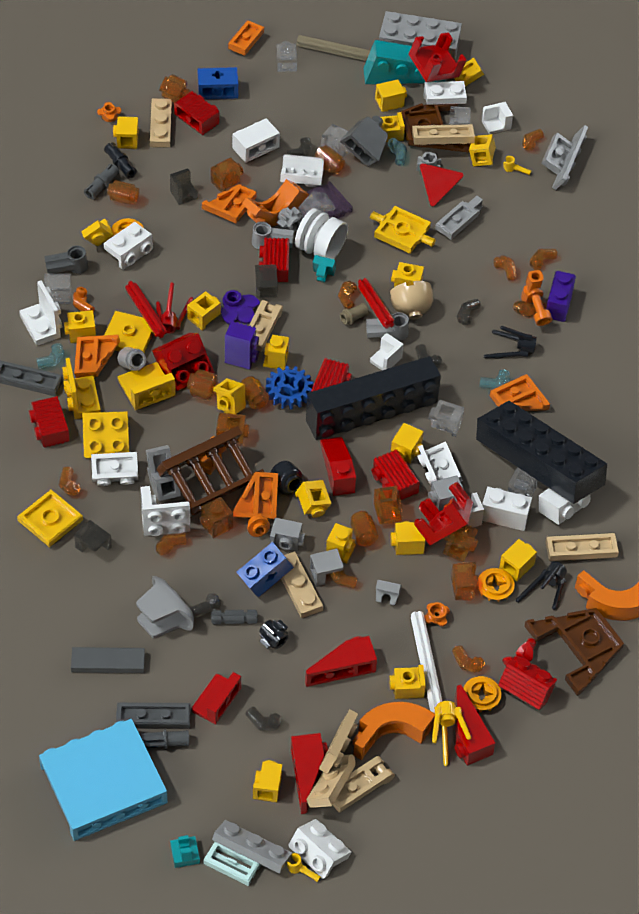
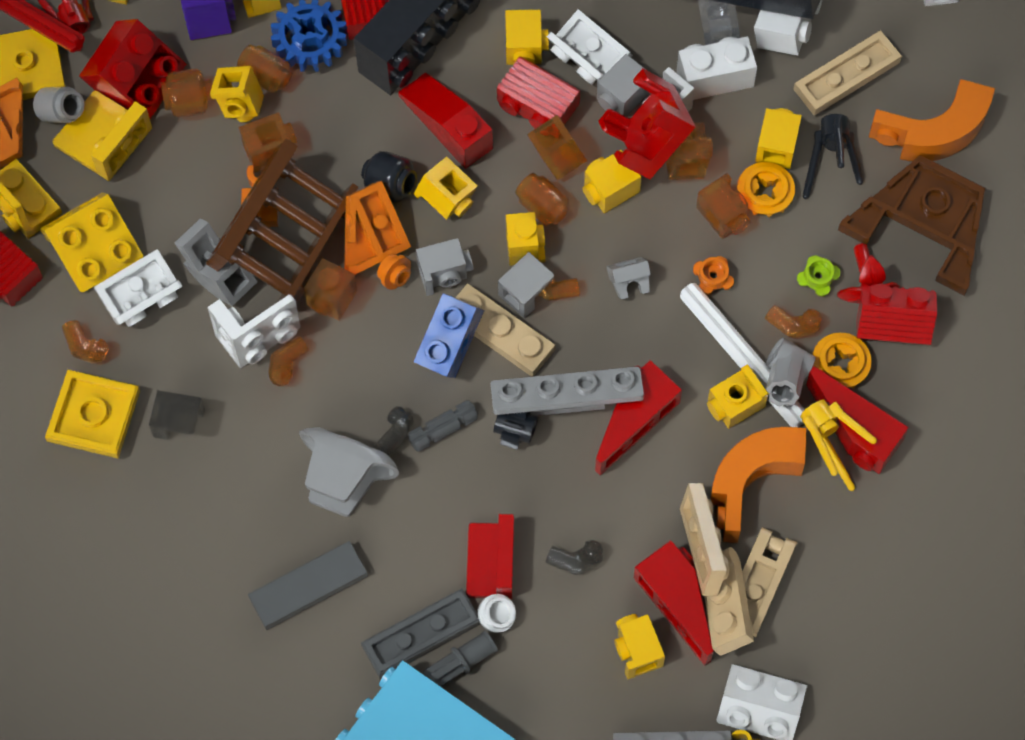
camera: 25 degrees left, 15 degrees up
(201, 725) = (496, 613): none -> white plate
(310, 629) = (567, 391): none -> light grey bracket
(443, 681) = (788, 370): none -> light grey piece
(497, 637) = (820, 265): none -> lime plate

